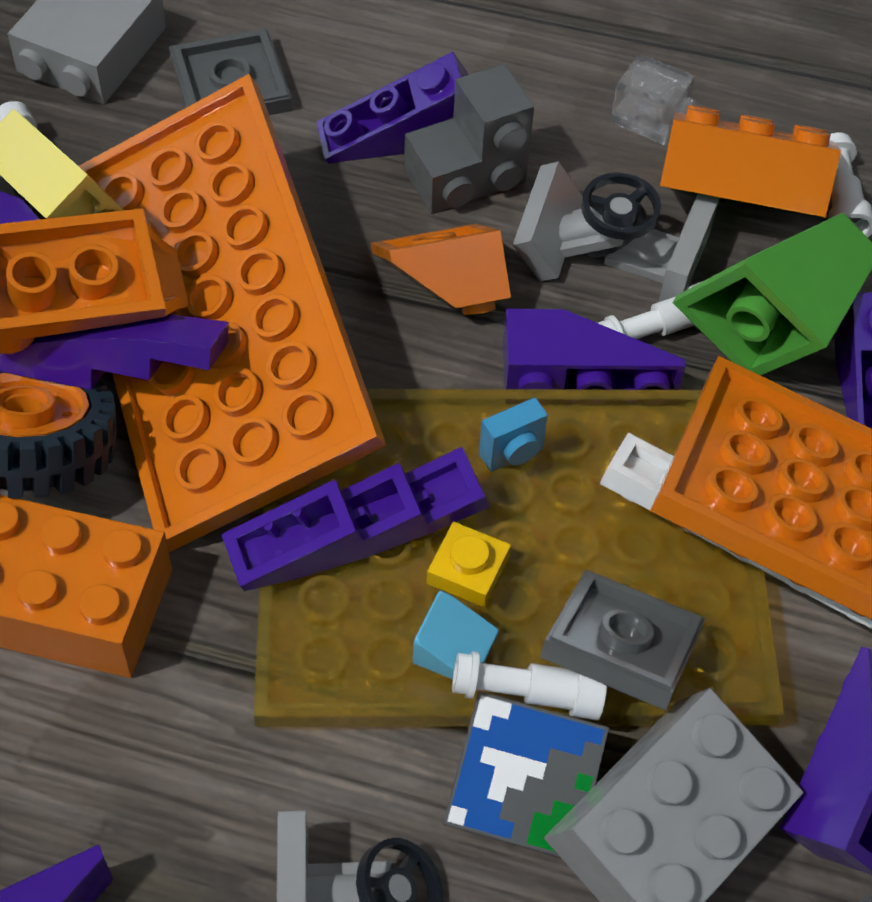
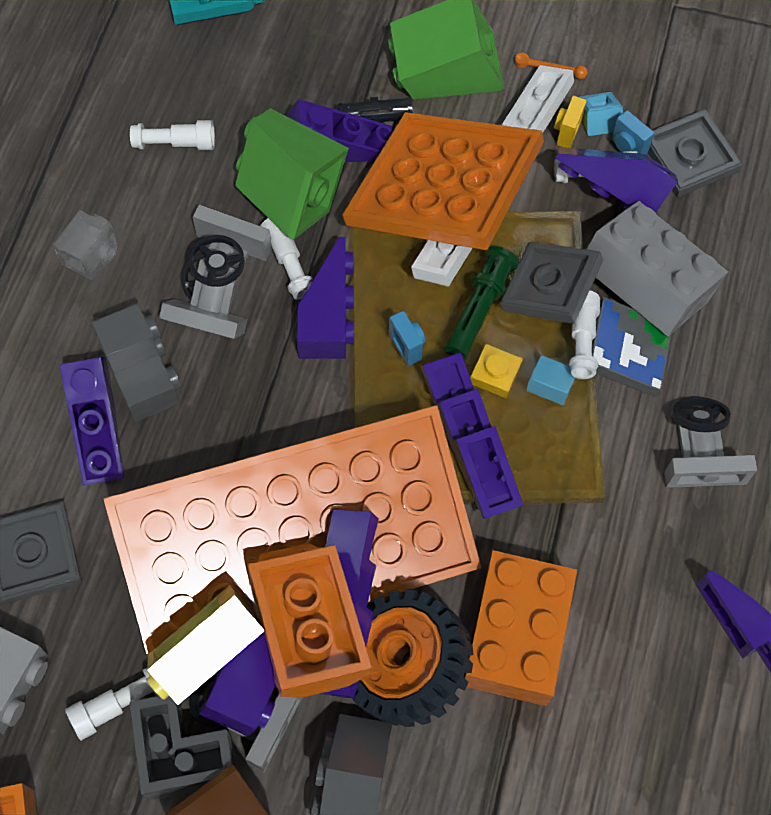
camera: 90 degrees left, 10 degrees up
(454, 264) = (239, 384): orange slope -> none
(610, 550) = (486, 287): none -> dark green pin
(751, 161) = (170, 183): orange brick -> none

